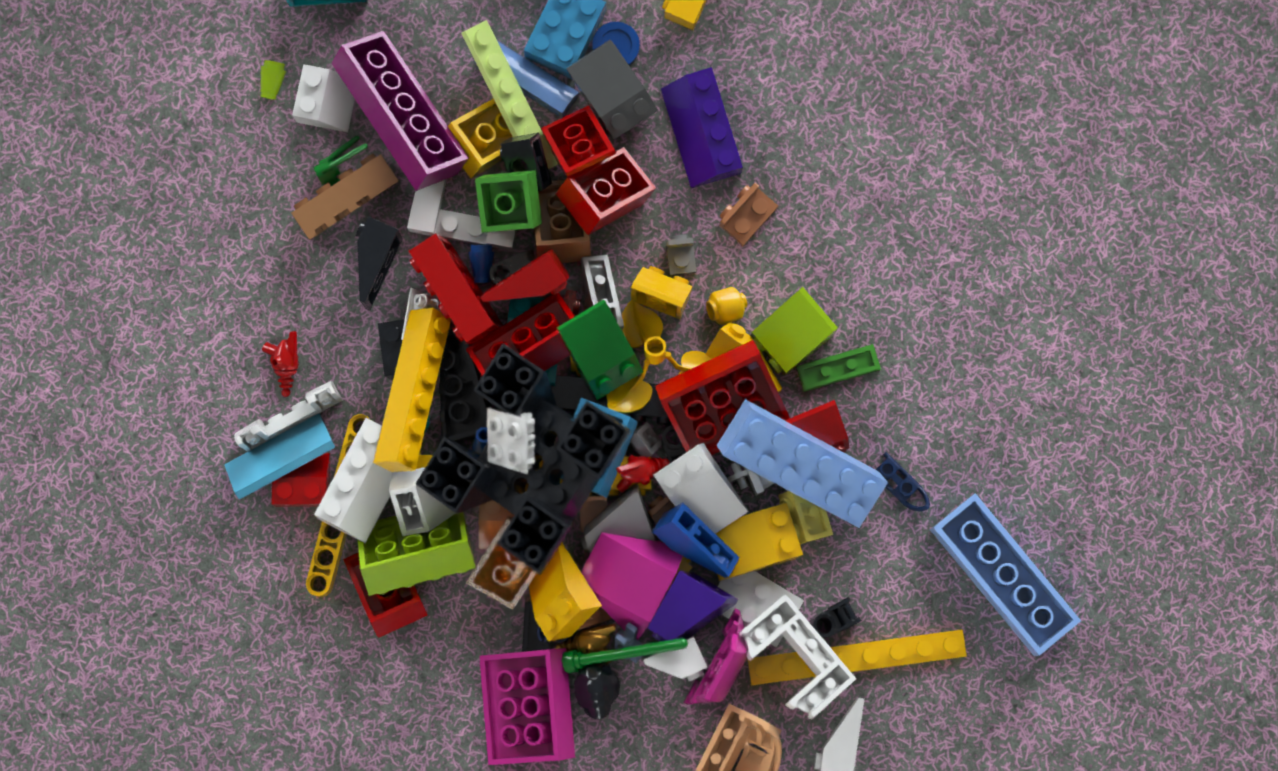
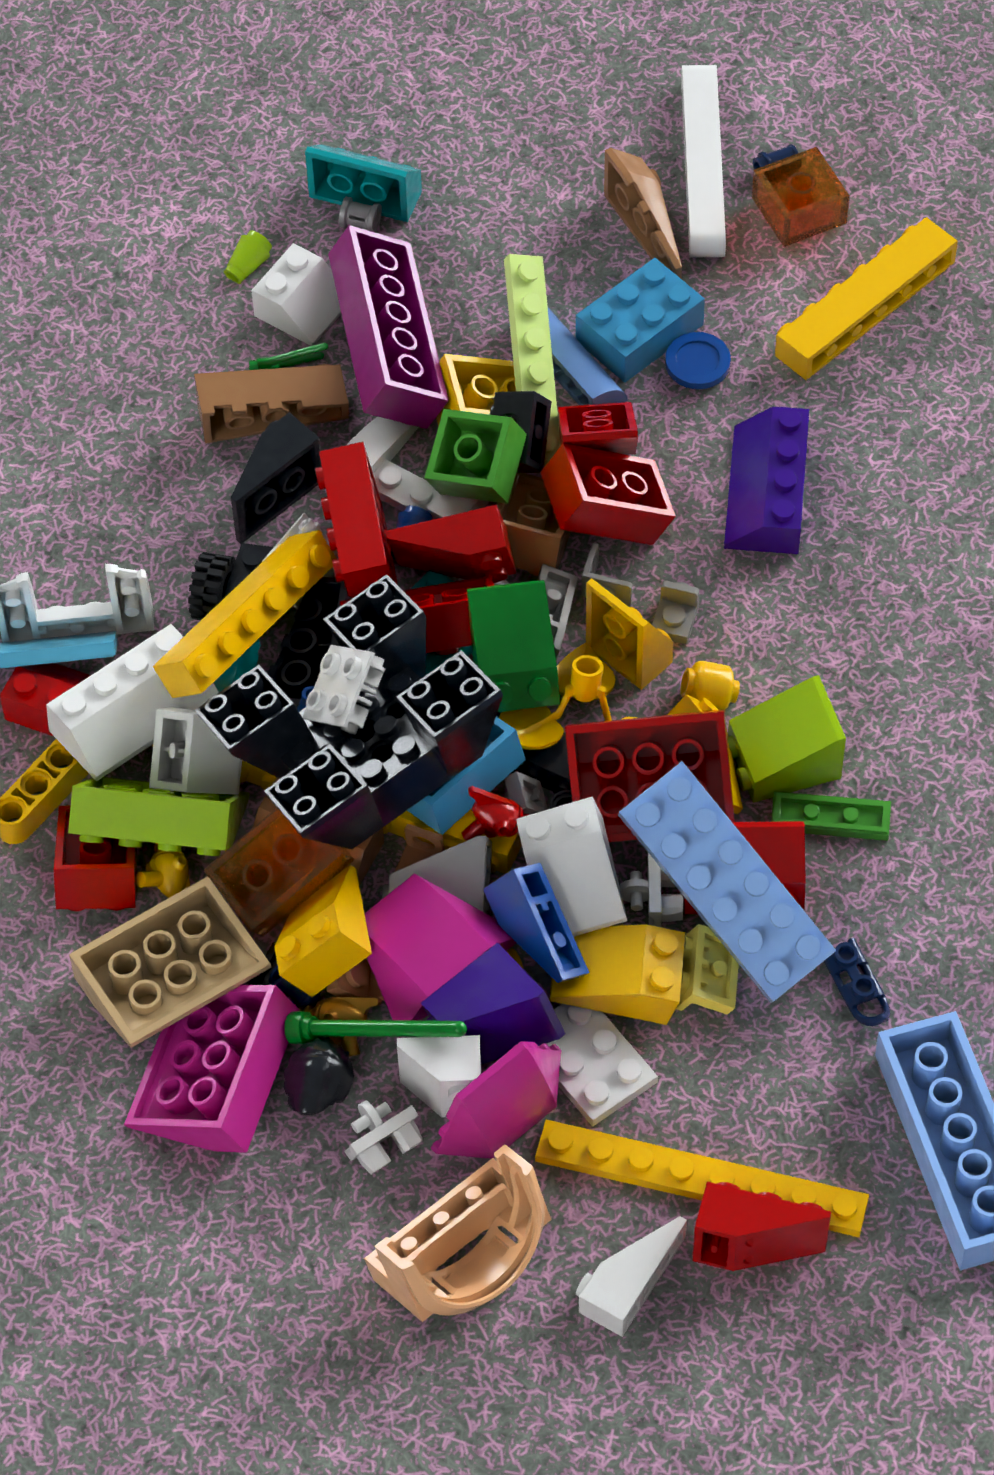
camera: 25 degrees right, 25 degrees down
(284, 361) = (102, 550): red piece -> none
(334, 13) = (360, 215): none -> light grey bush
(371, 362) = (208, 583): none -> black tyre
(443, 588) = (165, 871): none -> yellow piece
(472, 654) = (167, 962): none -> tan slope
(611, 89) = (668, 395): dark grey slope -> none
(627, 258) = (619, 588): none -> light grey bracket
(627, 639) = (386, 1047): sand blue plate -> none
(649, 709) = (400, 1128): none -> white hips
(747, 214) = (784, 595): nougat bracket -> none
(830, 672) = (649, 1164): white wedge -> none
(837, 618) = (694, 1110): black piece -> none
(900, 693) = (755, 1229): none -> red slope

